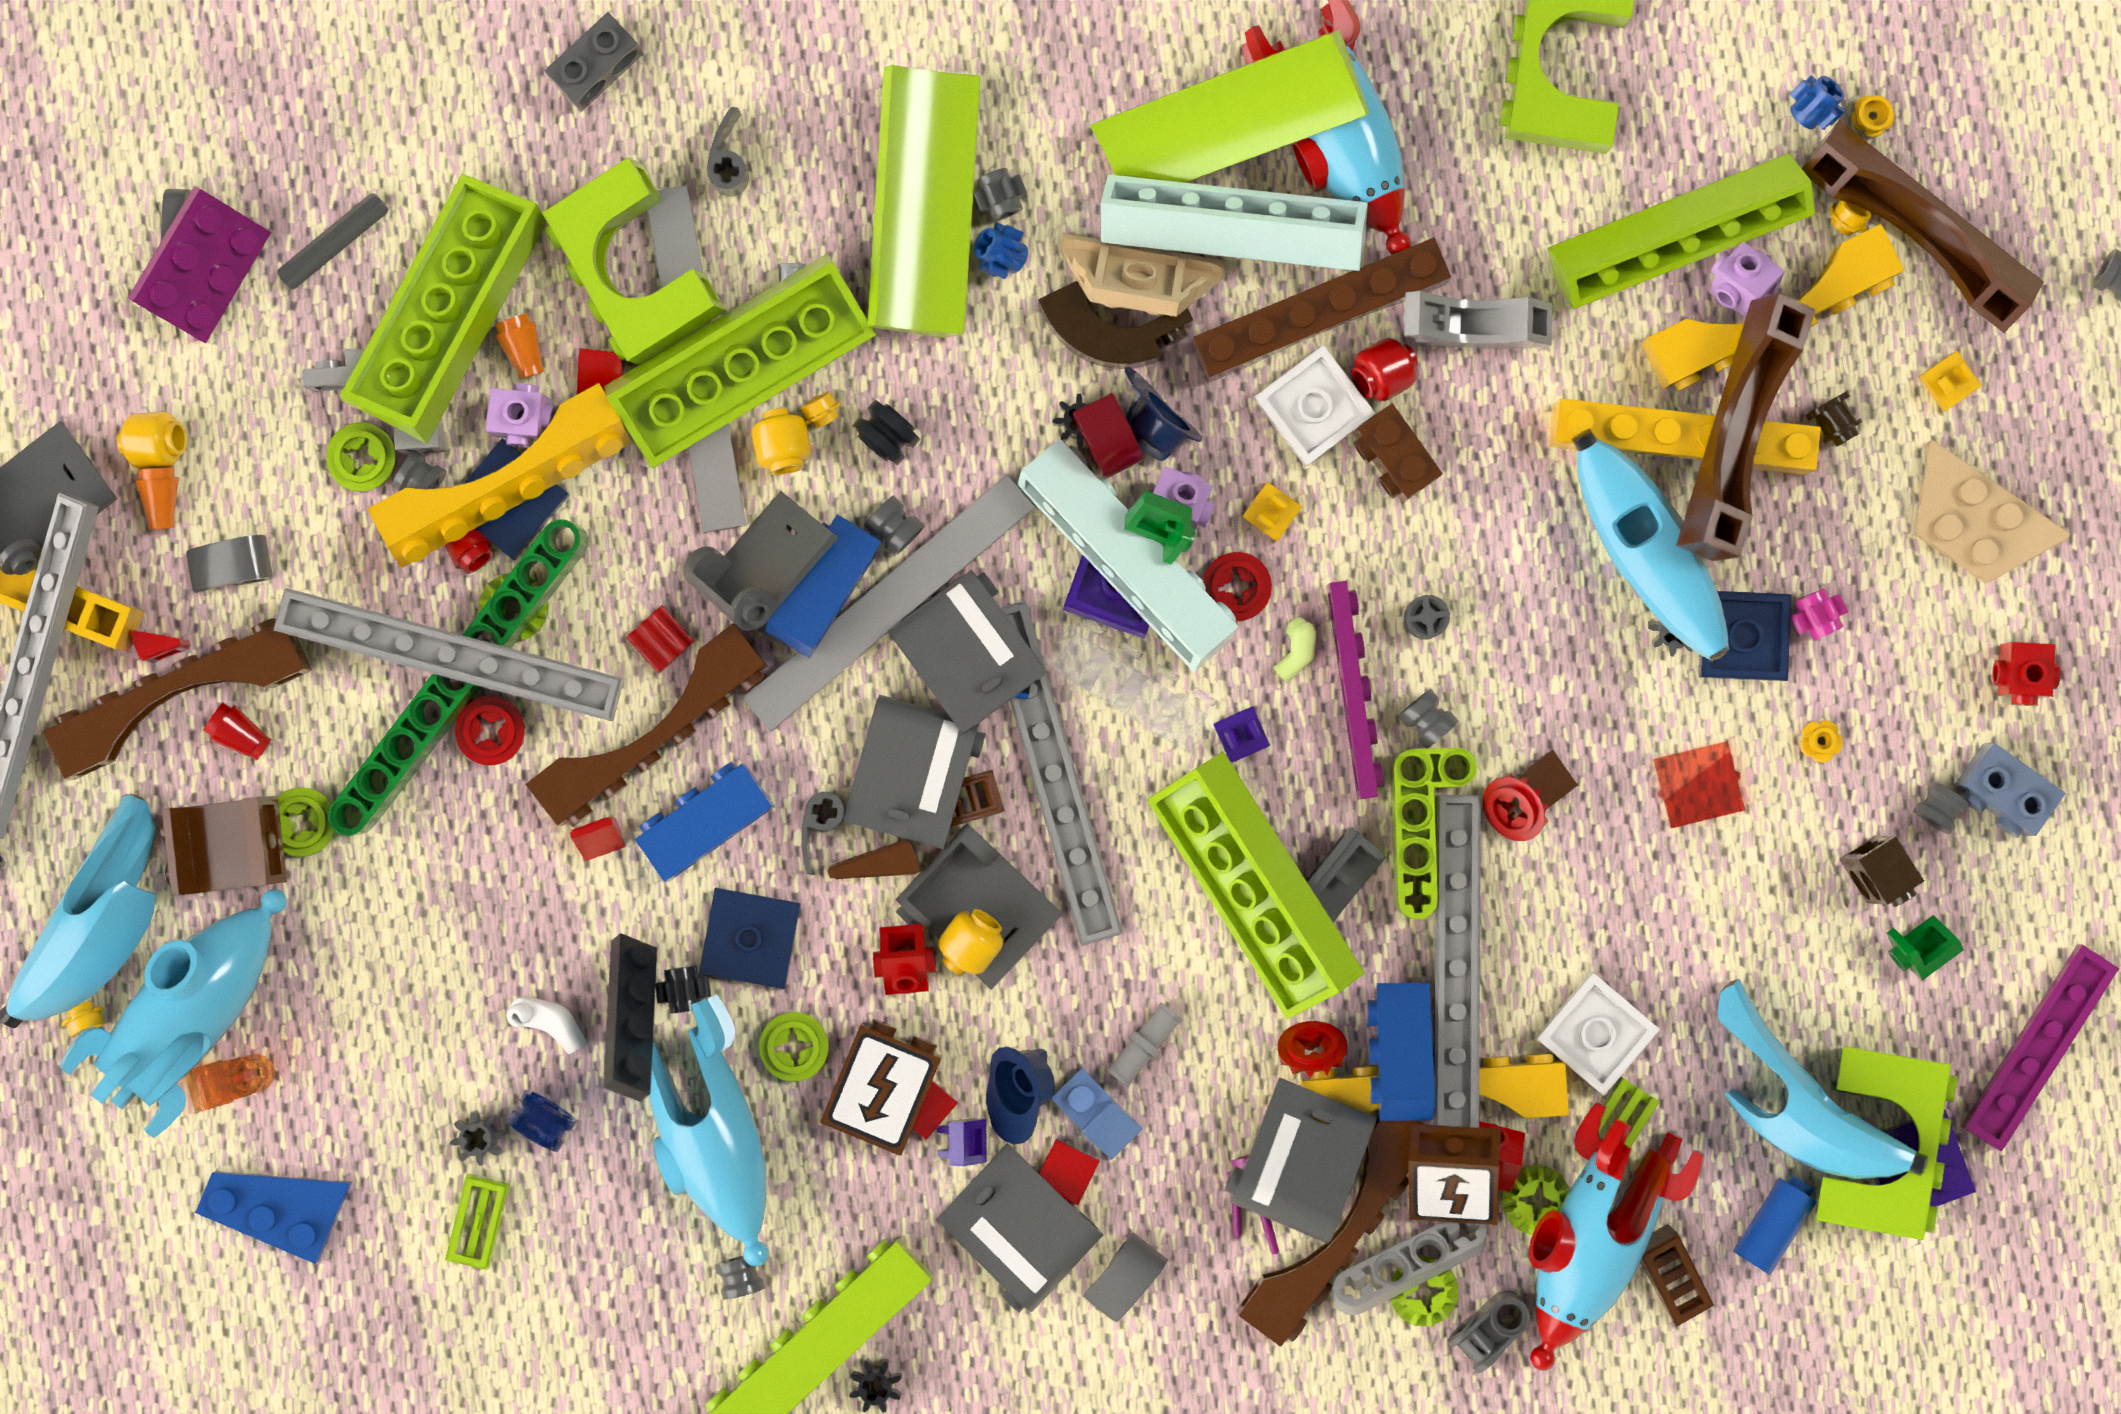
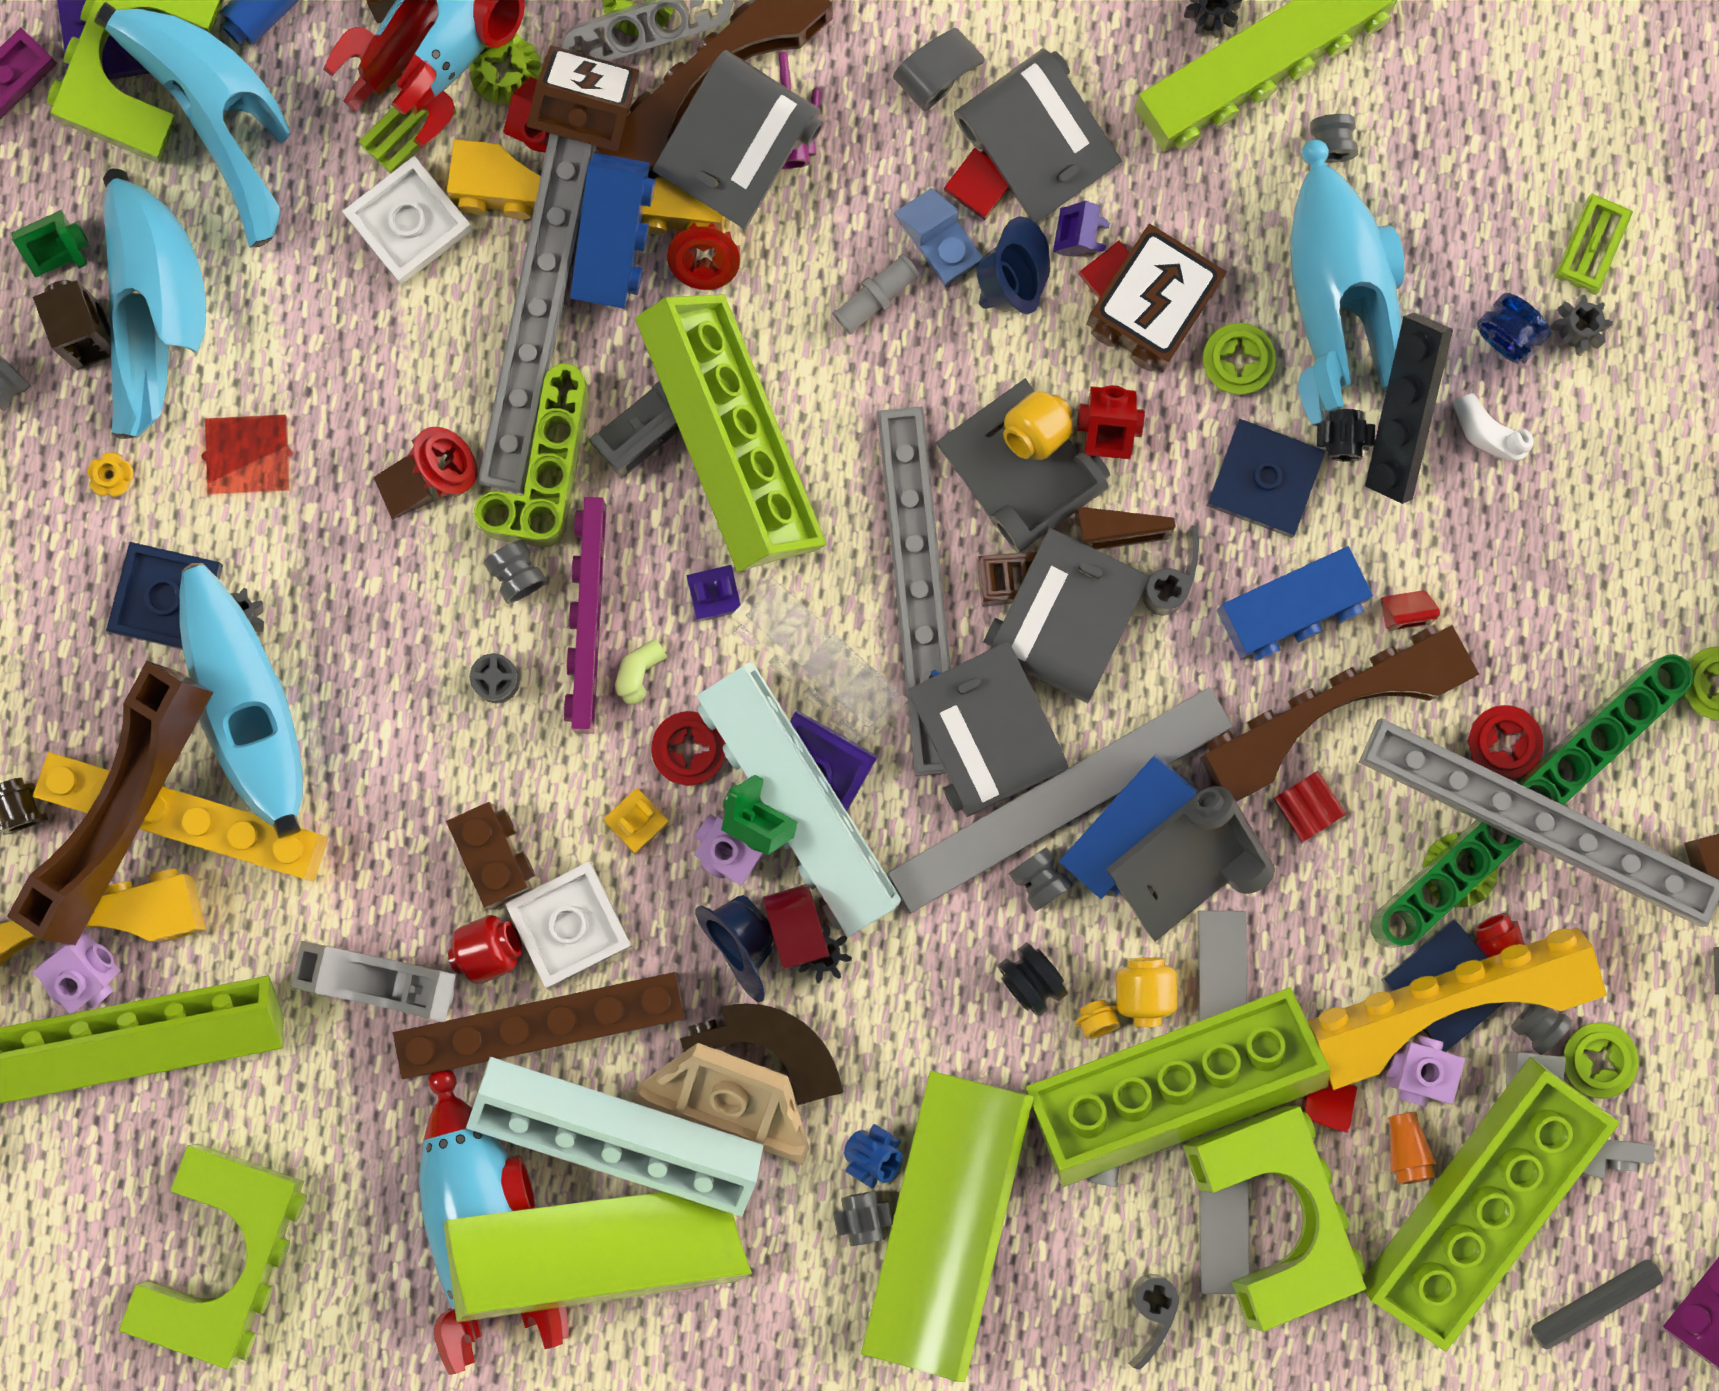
camera: 170 degrees left, 5 degrees down
(1818, 914) = (151, 256): none -> medium azure piece
(1819, 614) = (80, 603): dark pink gear -> none

